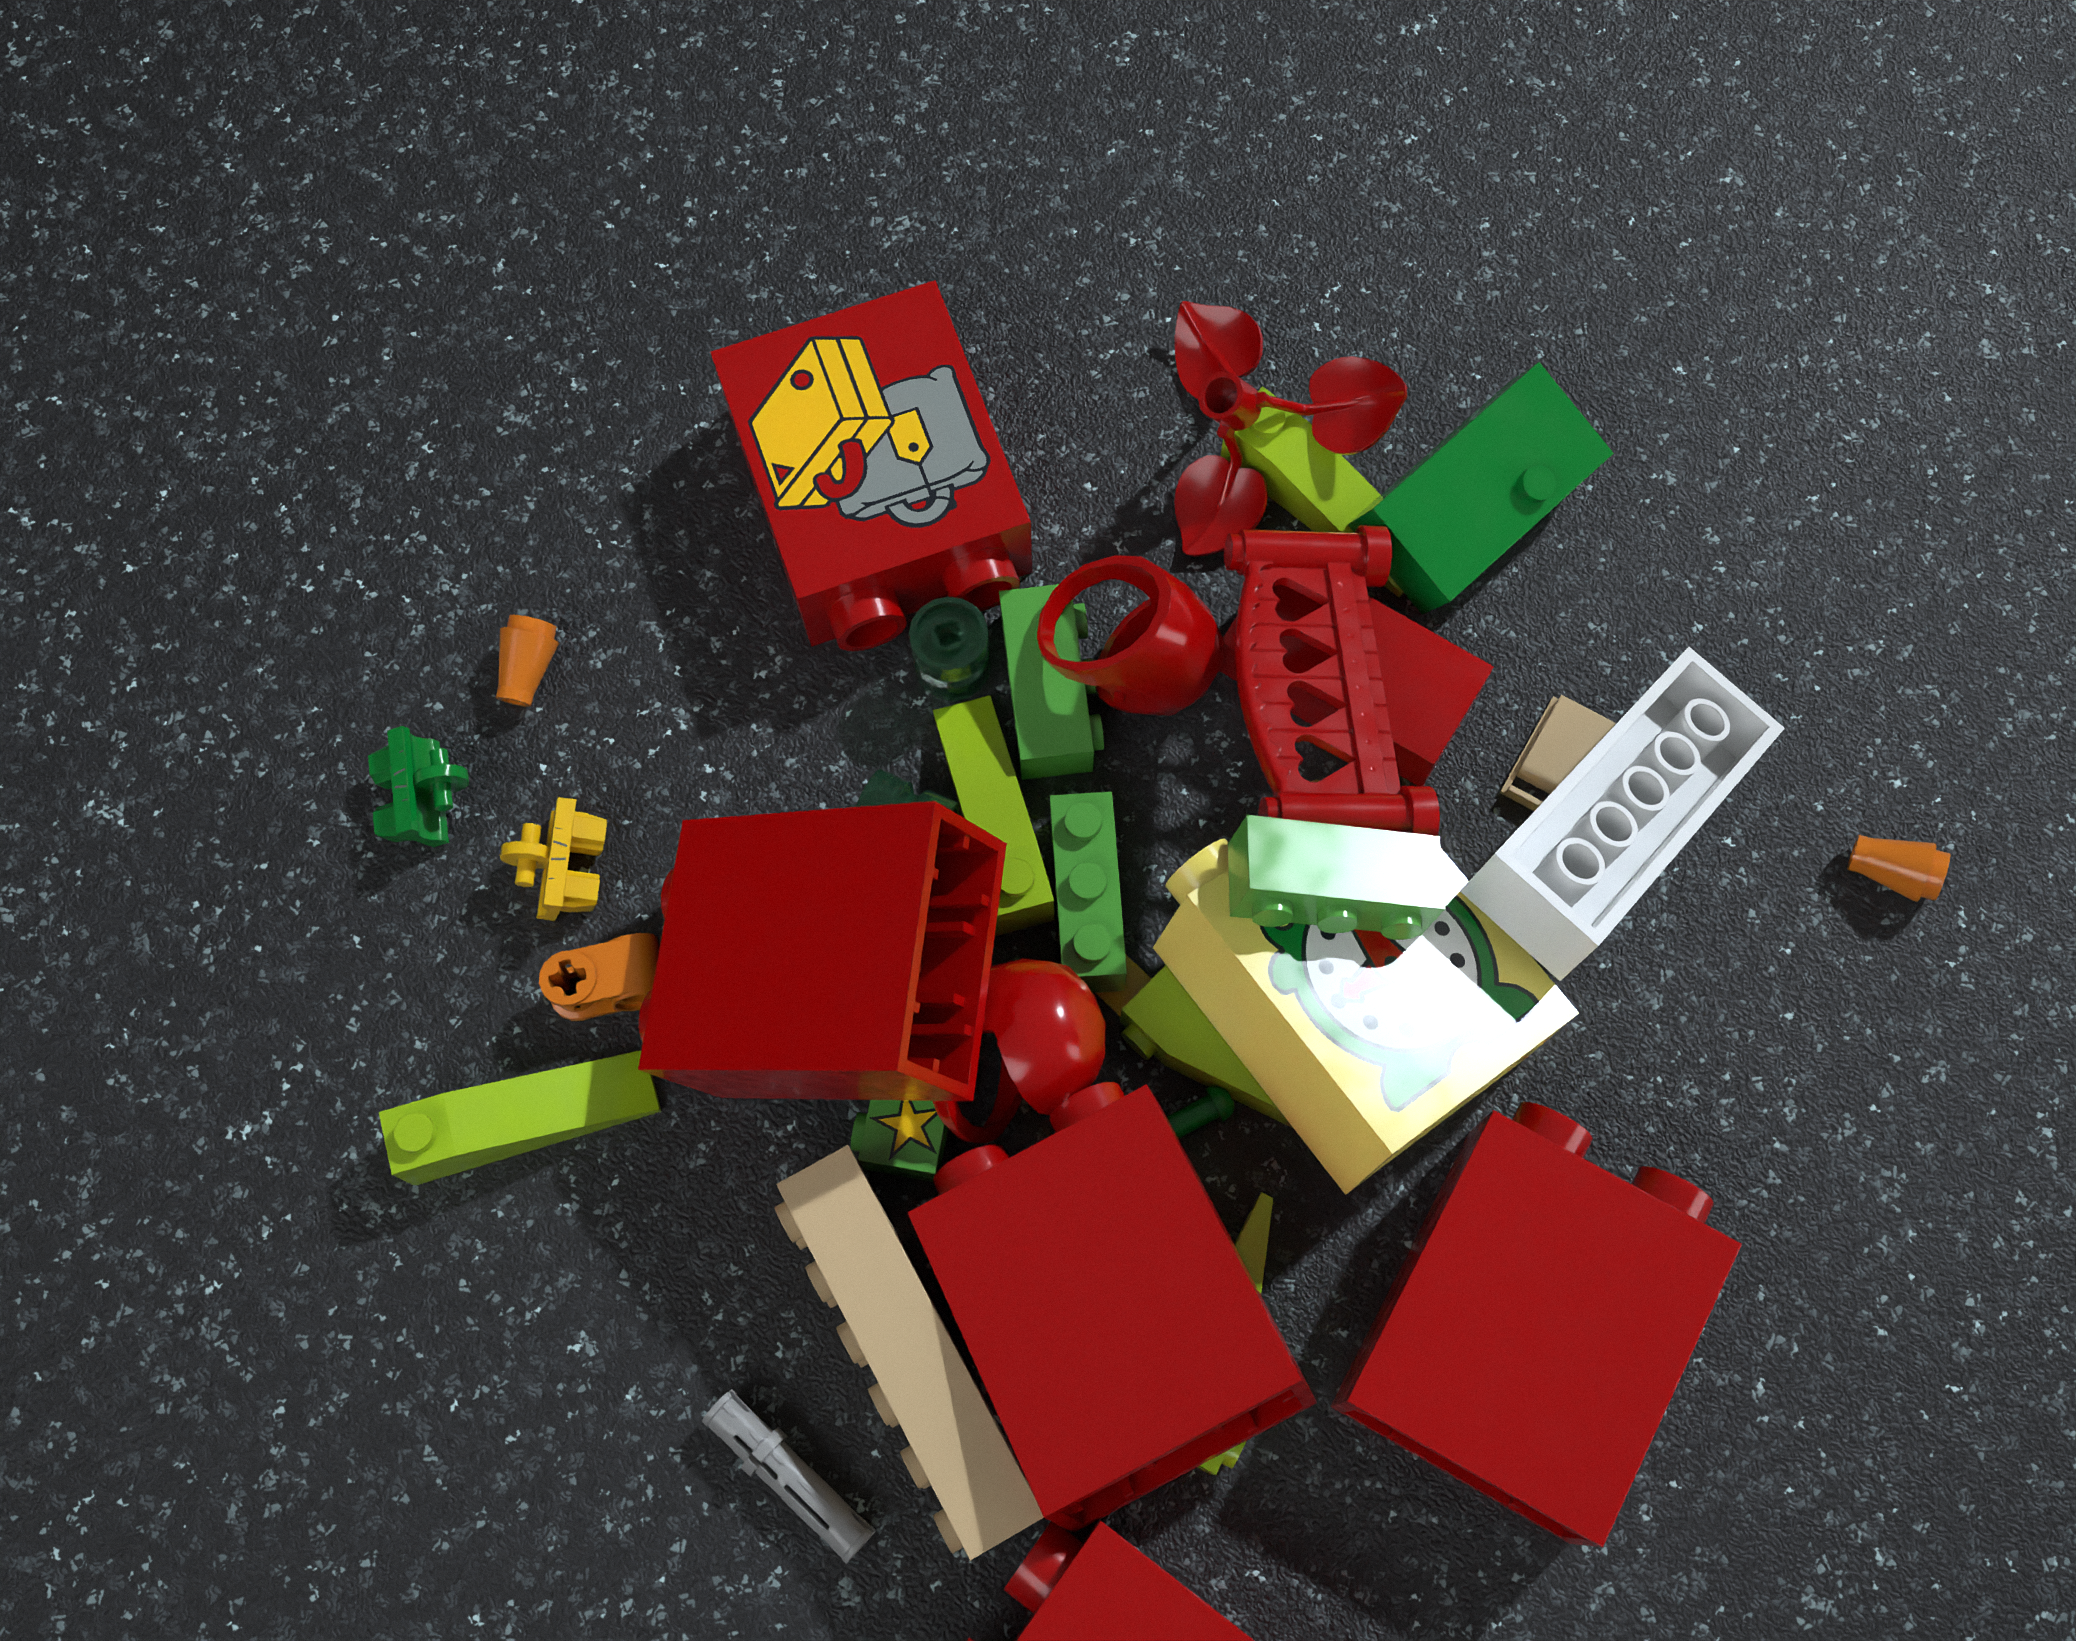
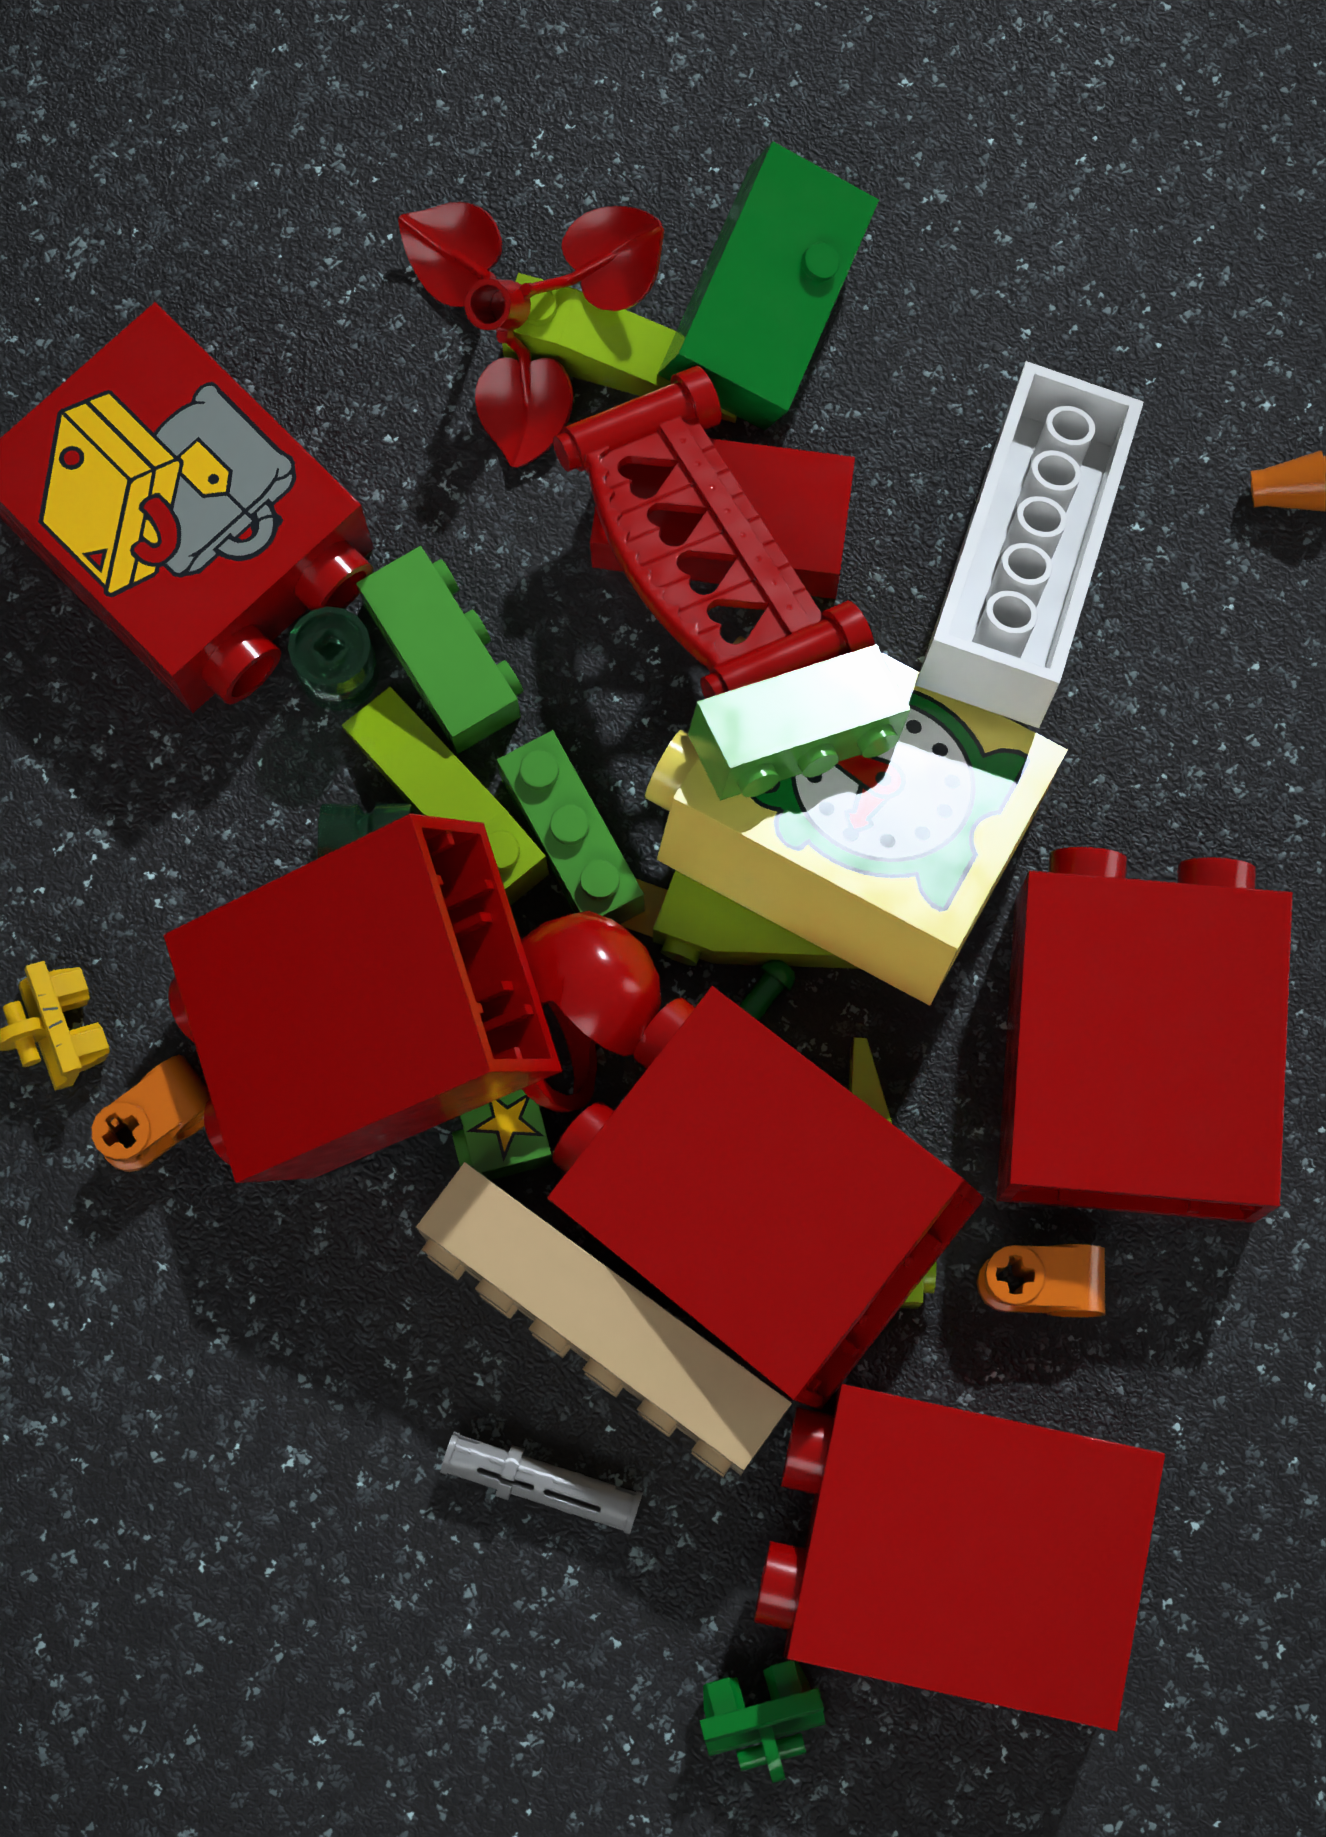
camera: 25 degrees left, 5 degrees up
(514, 1116) = (132, 1279): lime slope -> none
(1157, 655) = (533, 579): red piece -> none
(1353, 1511) = (1057, 1280): none -> orange piece
(1555, 748) = (944, 507): tan piece -> none

